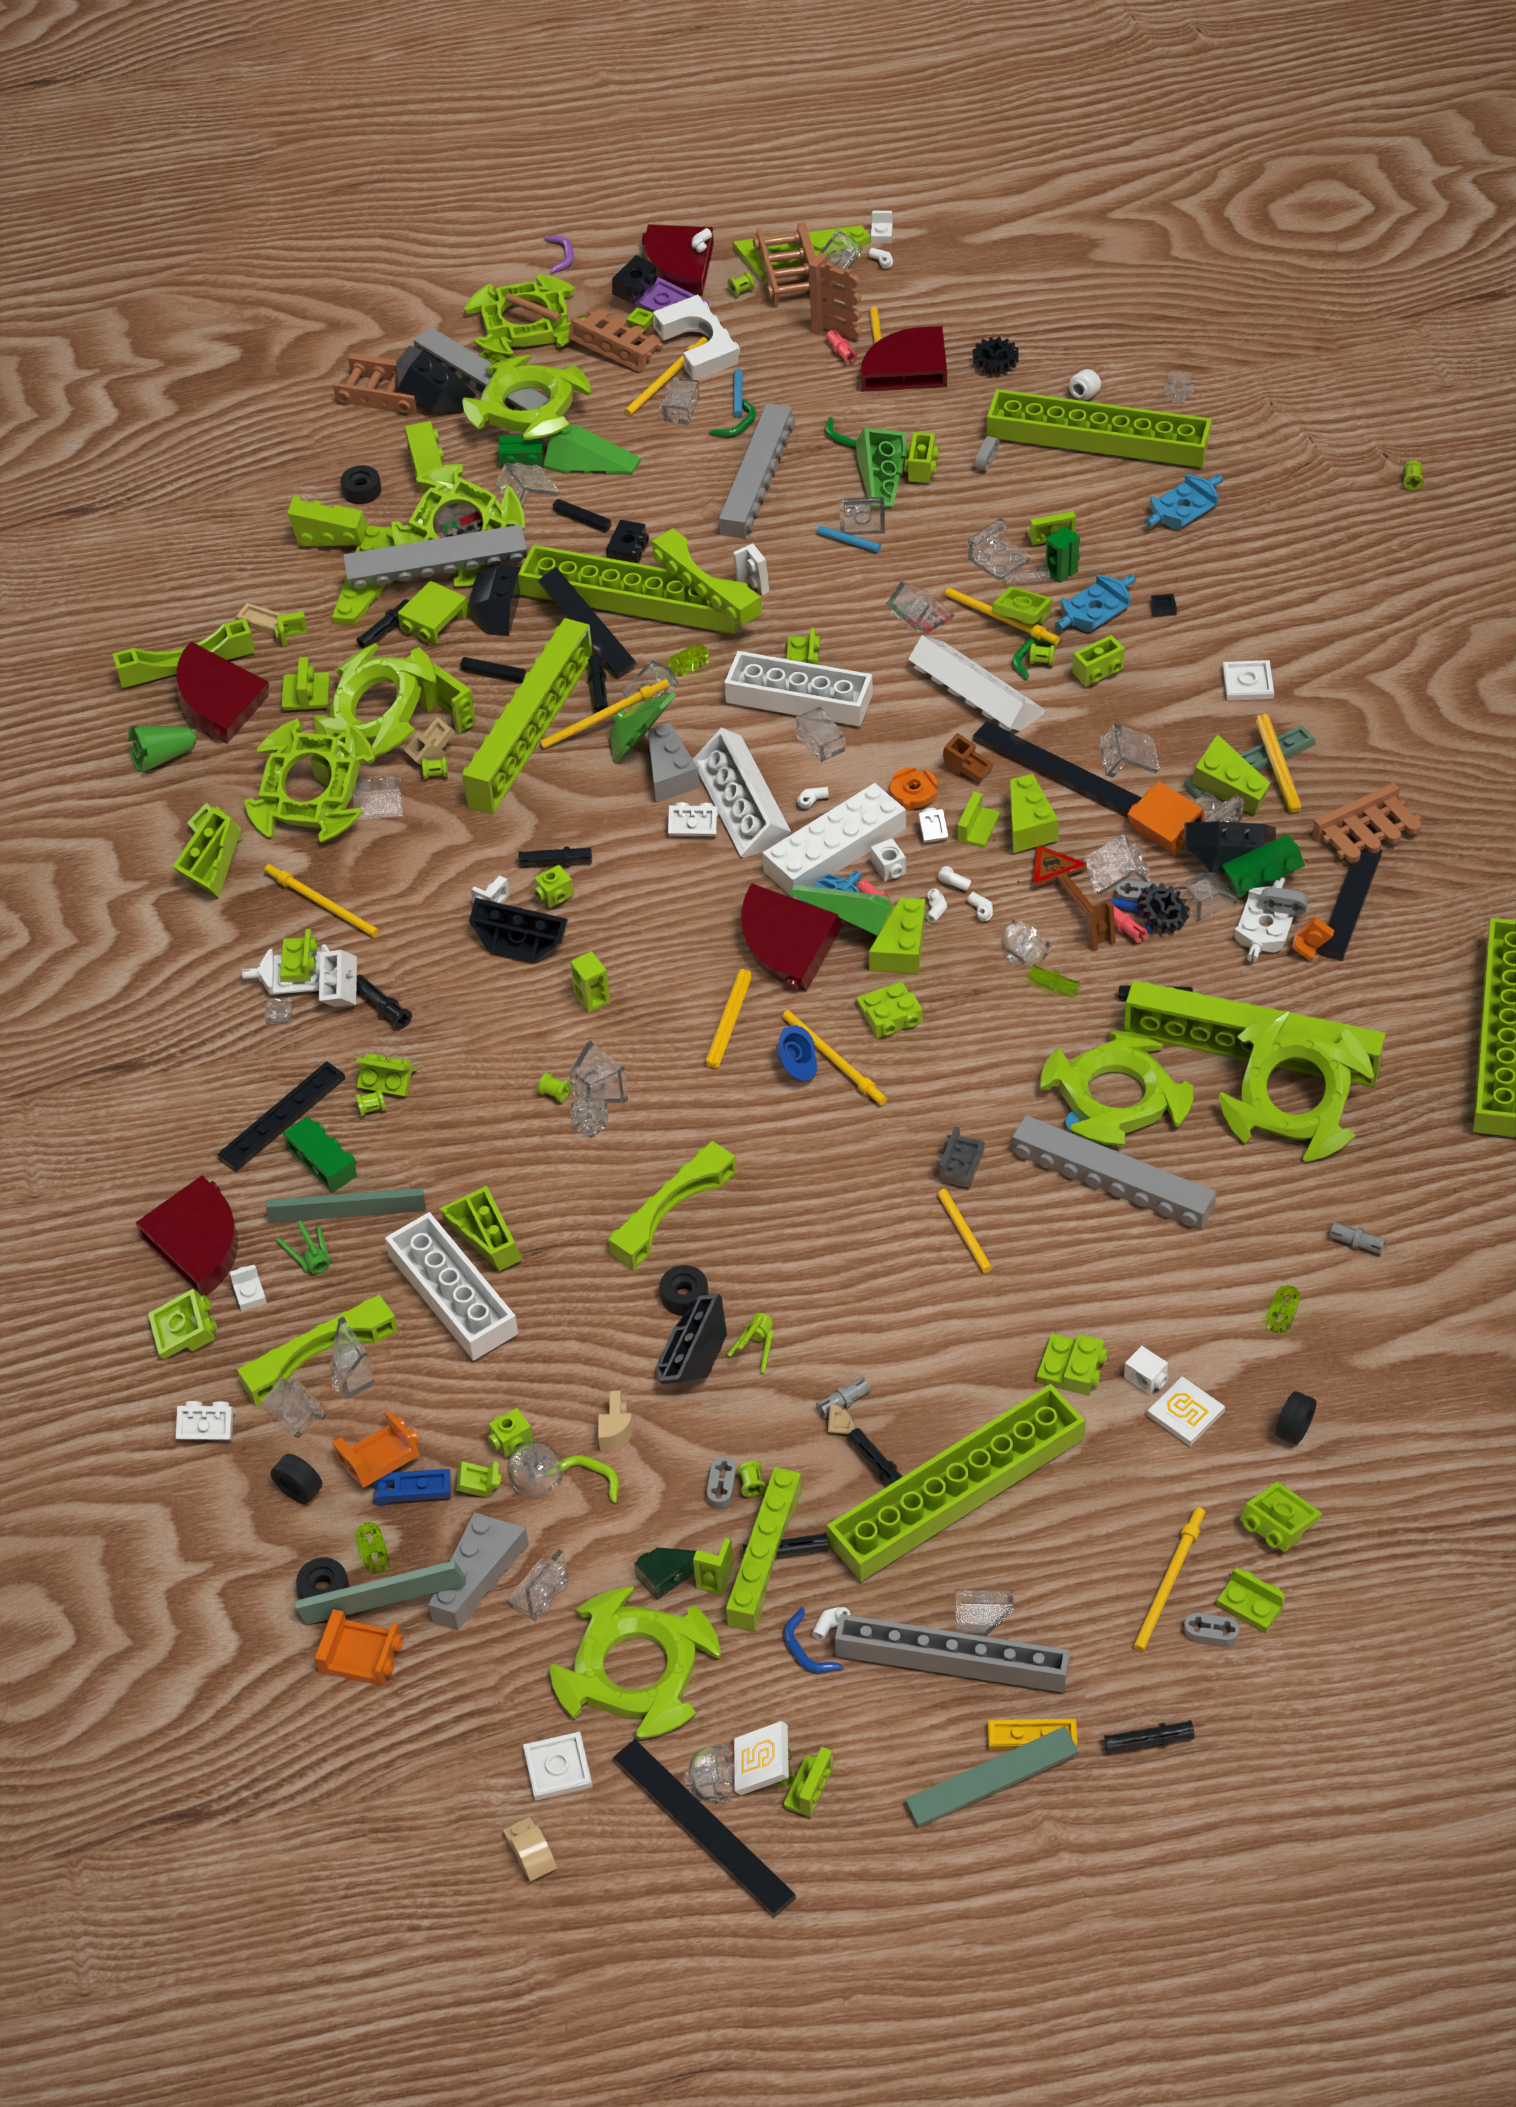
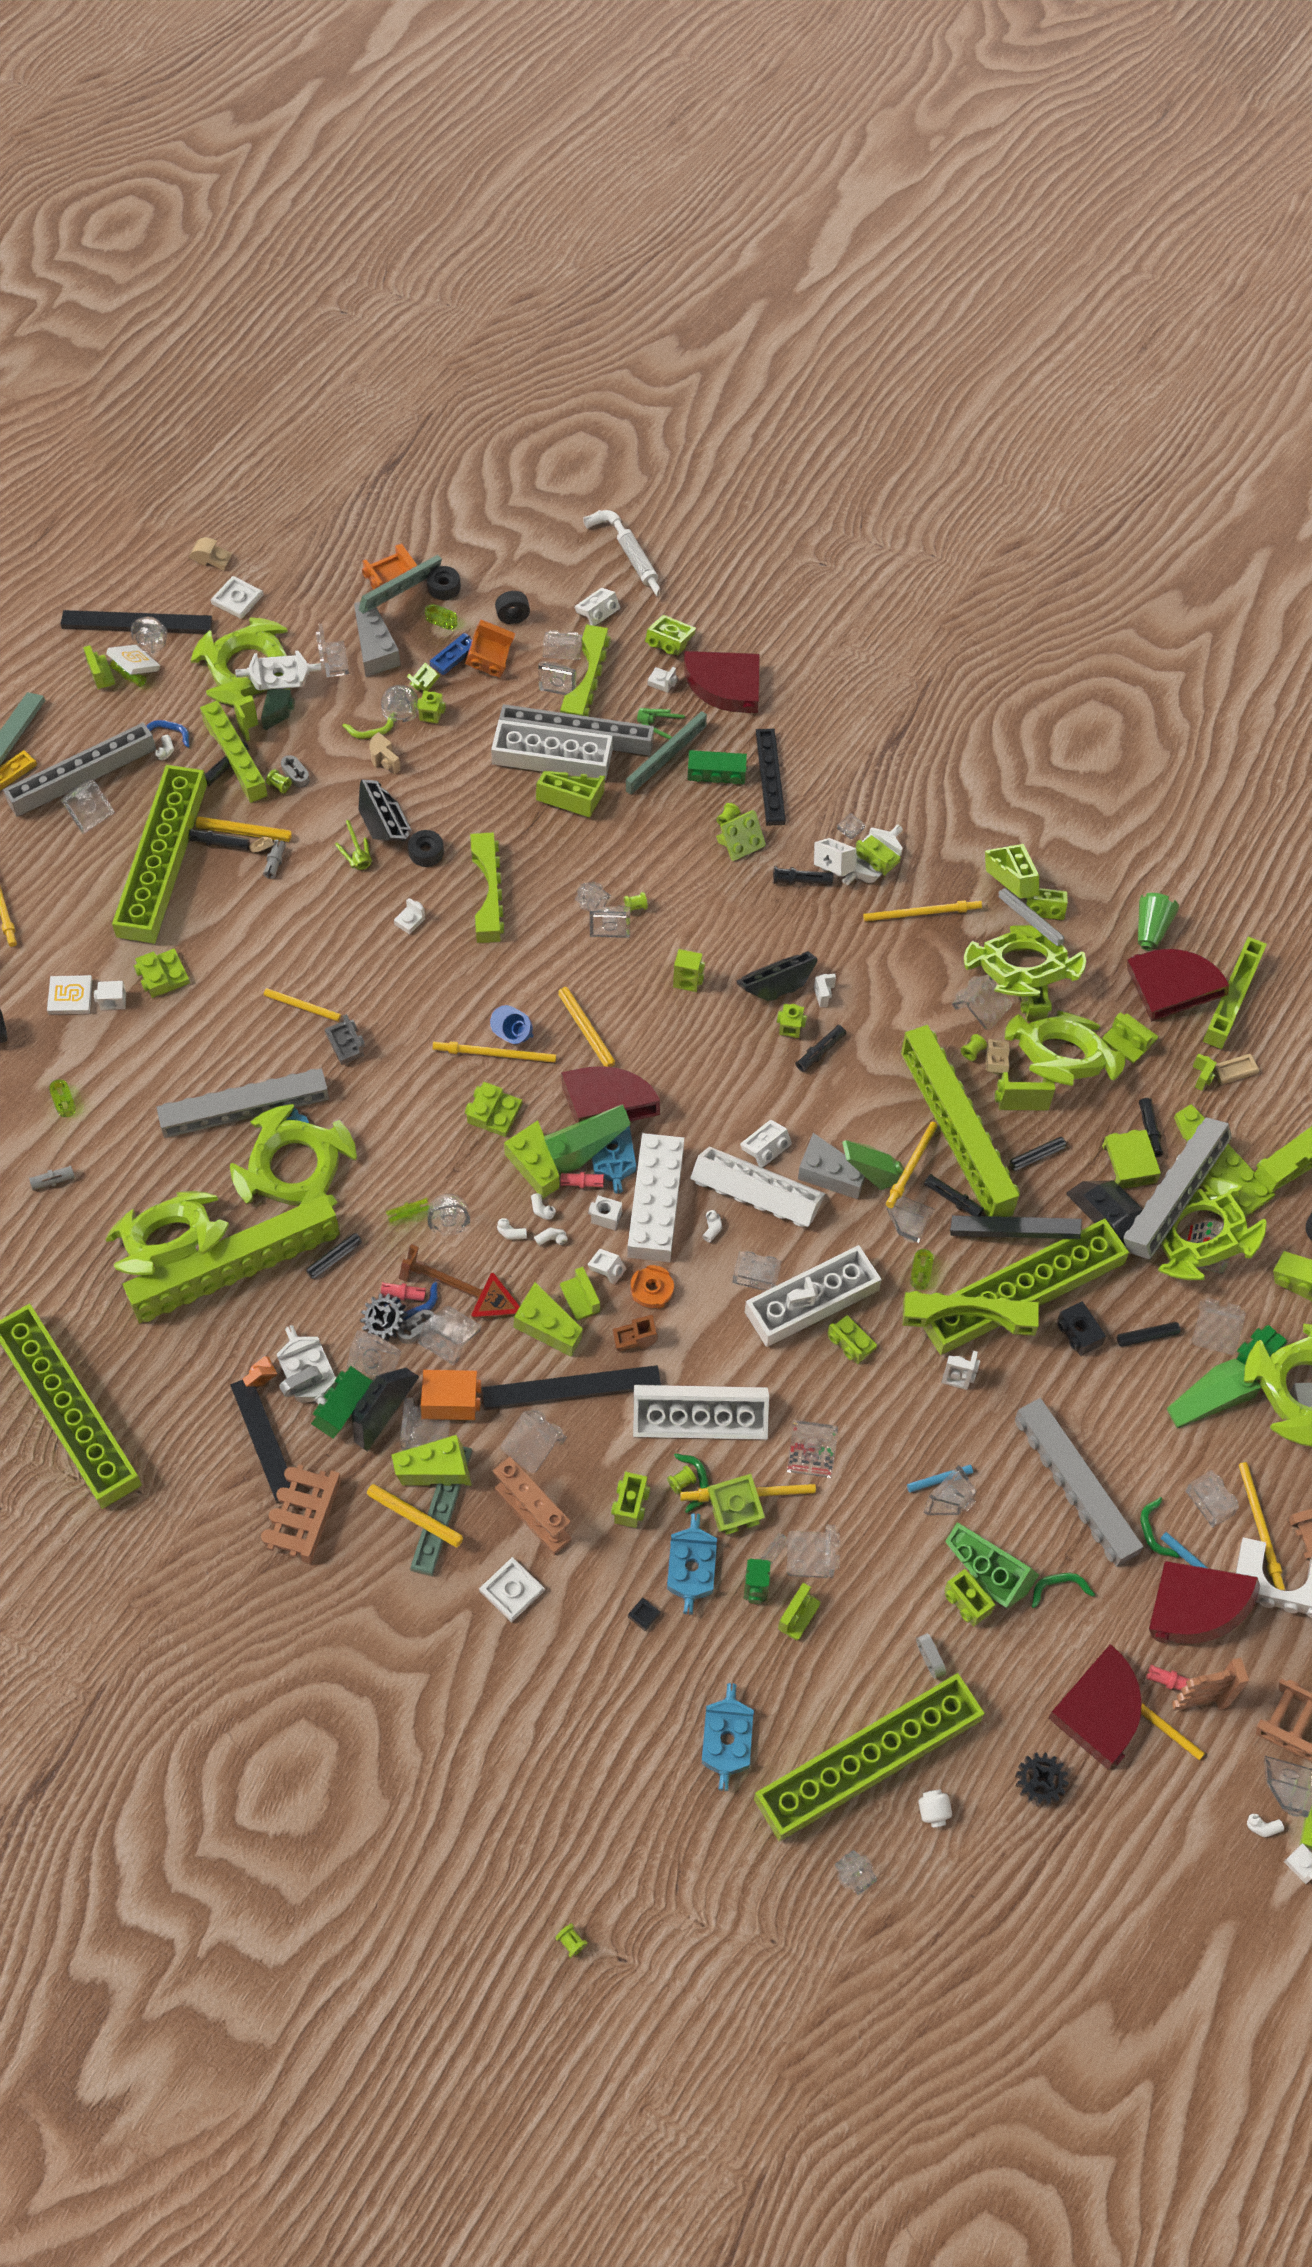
camera: 130 degrees right, 10 degrees up
(85, 1464) = (630, 546): none -> white piece
(251, 812) = (1032, 917): none -> light grey axle
(403, 1289) = (626, 736): none -> light grey brick
(611, 1578) = (294, 671): none -> white plate
(772, 354) = (1200, 1603): none -> dark red brick
(774, 1235) = (410, 917): none -> white bracket
(817, 668) = (802, 1298): none -> white bracket
(837, 1453) = (243, 829): none -> yellow axle
(1182, 697) = (532, 1505): none -> nougat fence

